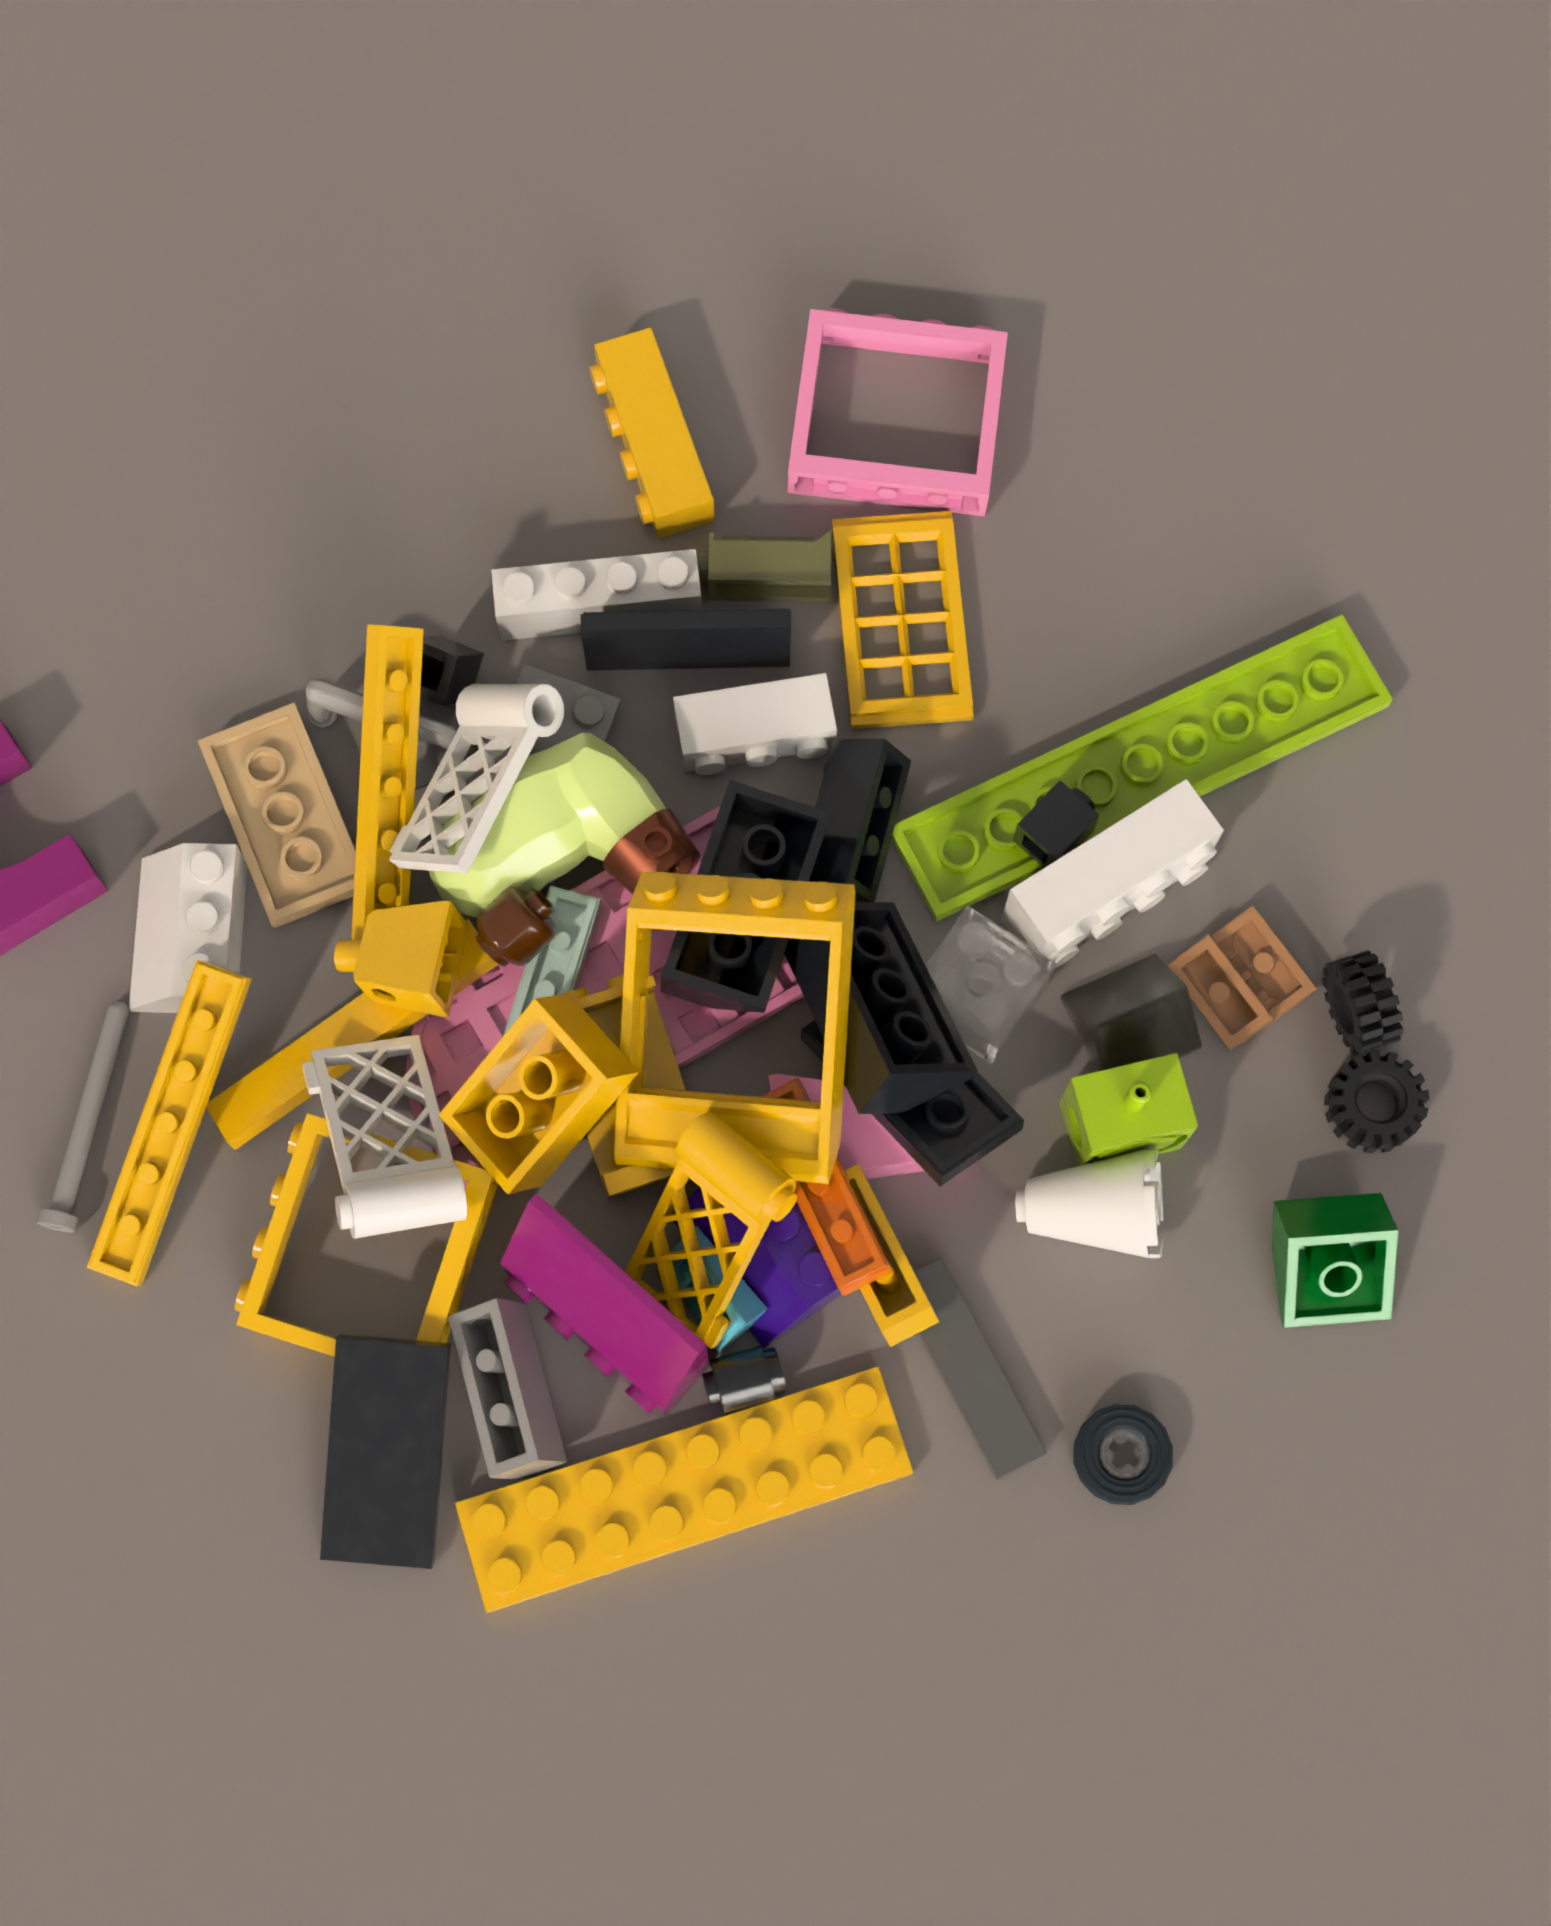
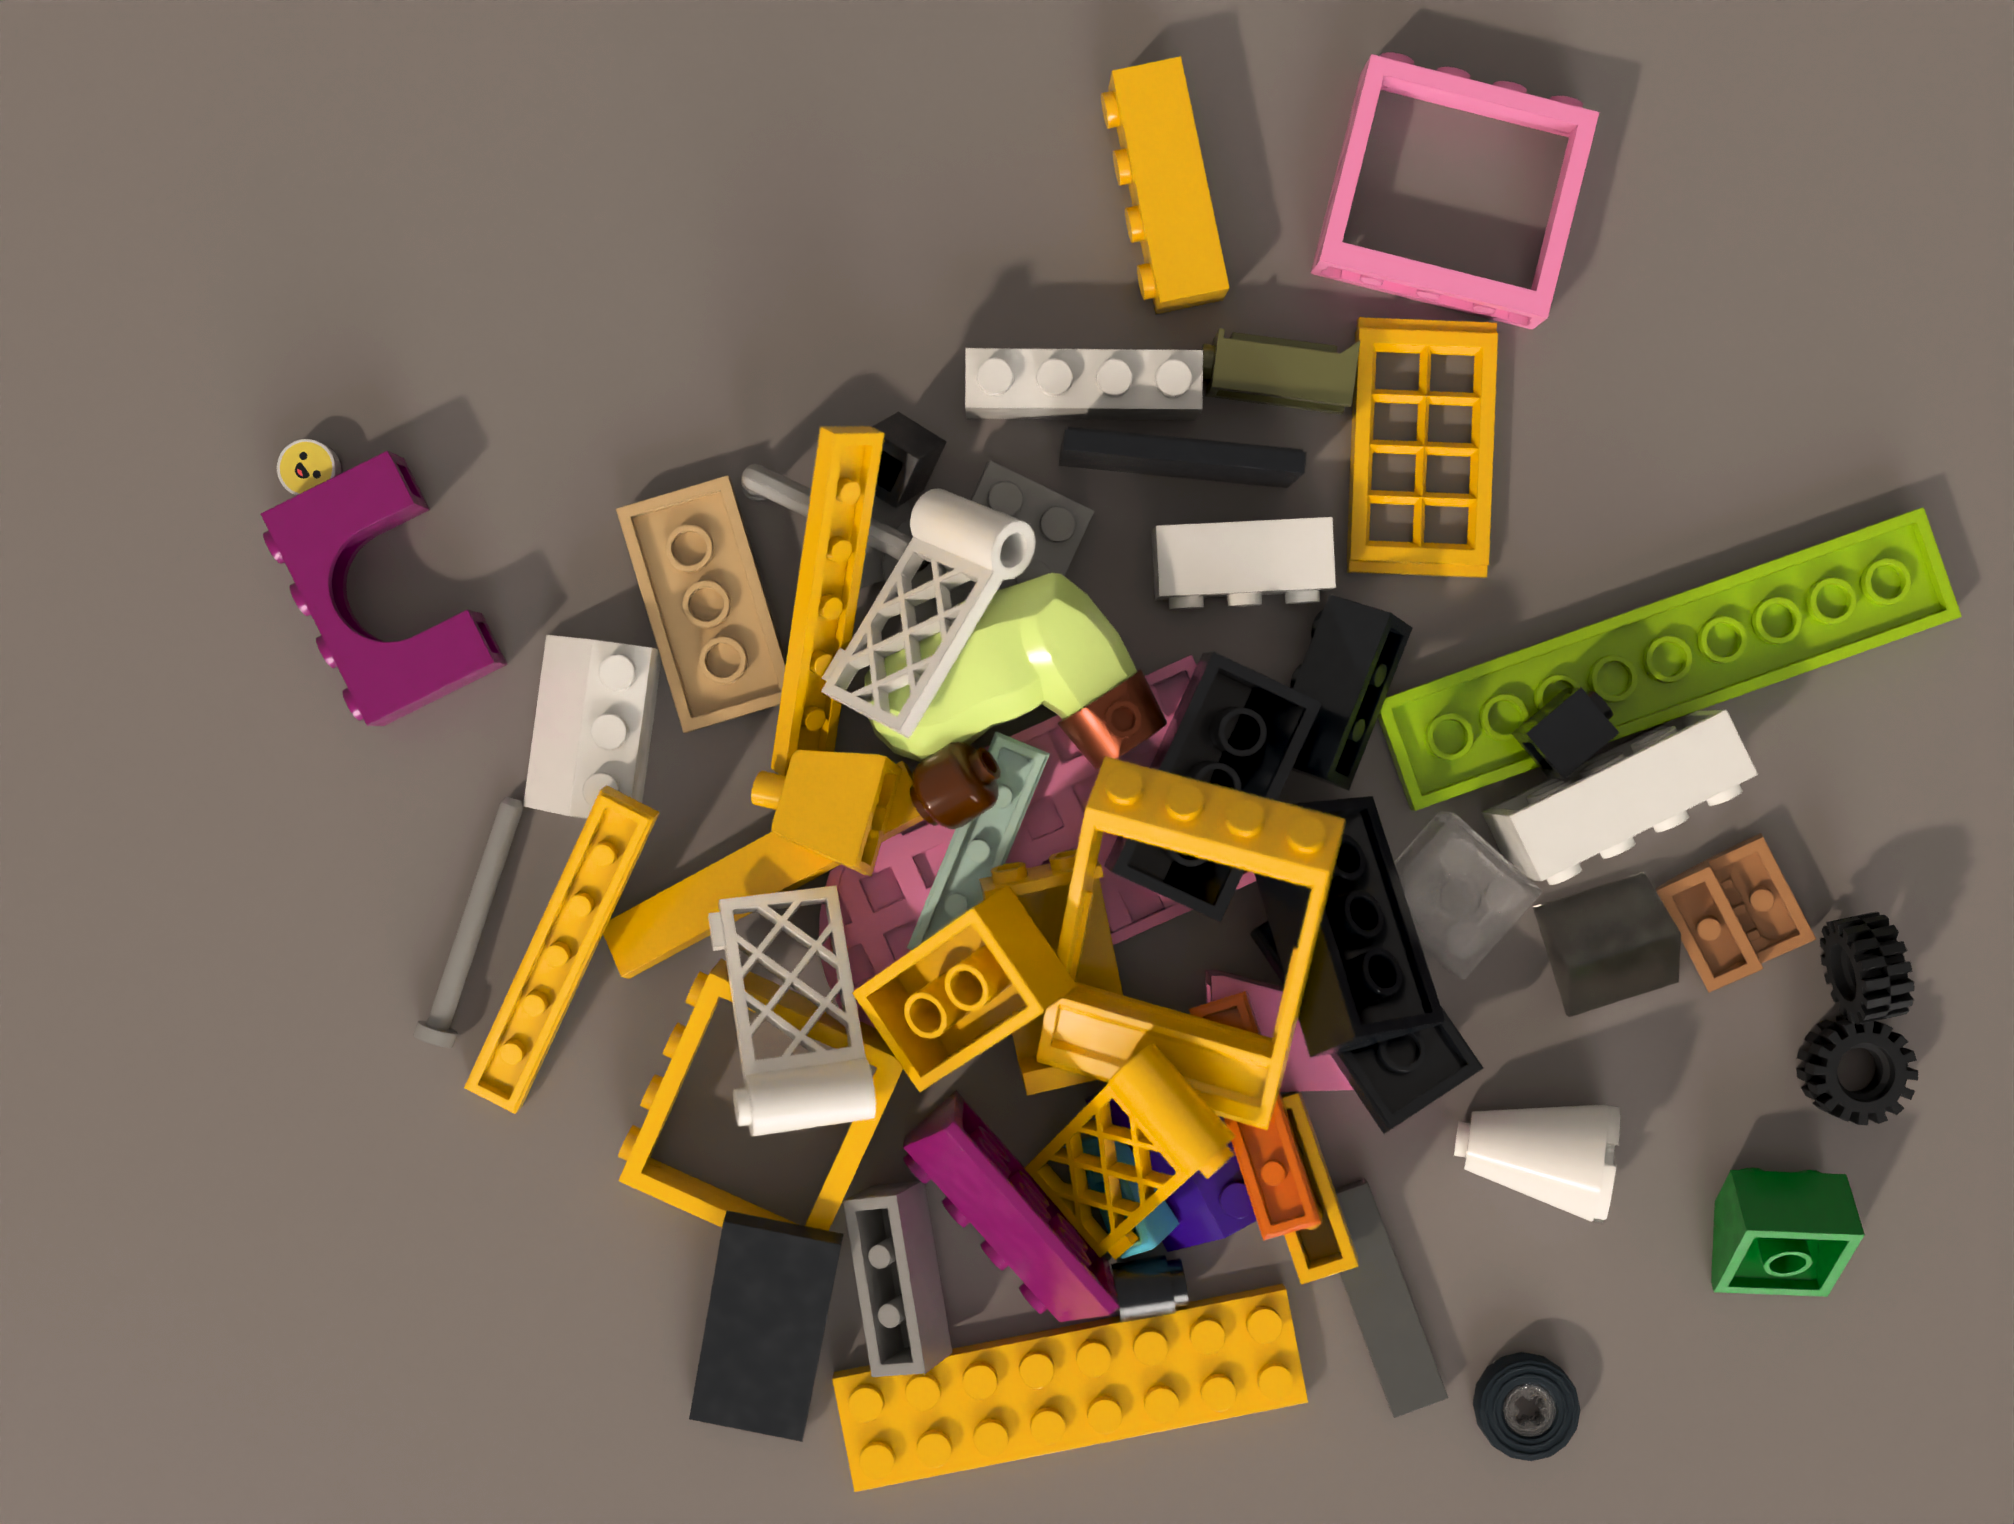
camera: 10 degrees right, 15 degrees up
(1128, 1110) = (1594, 1064): lime piece -> none

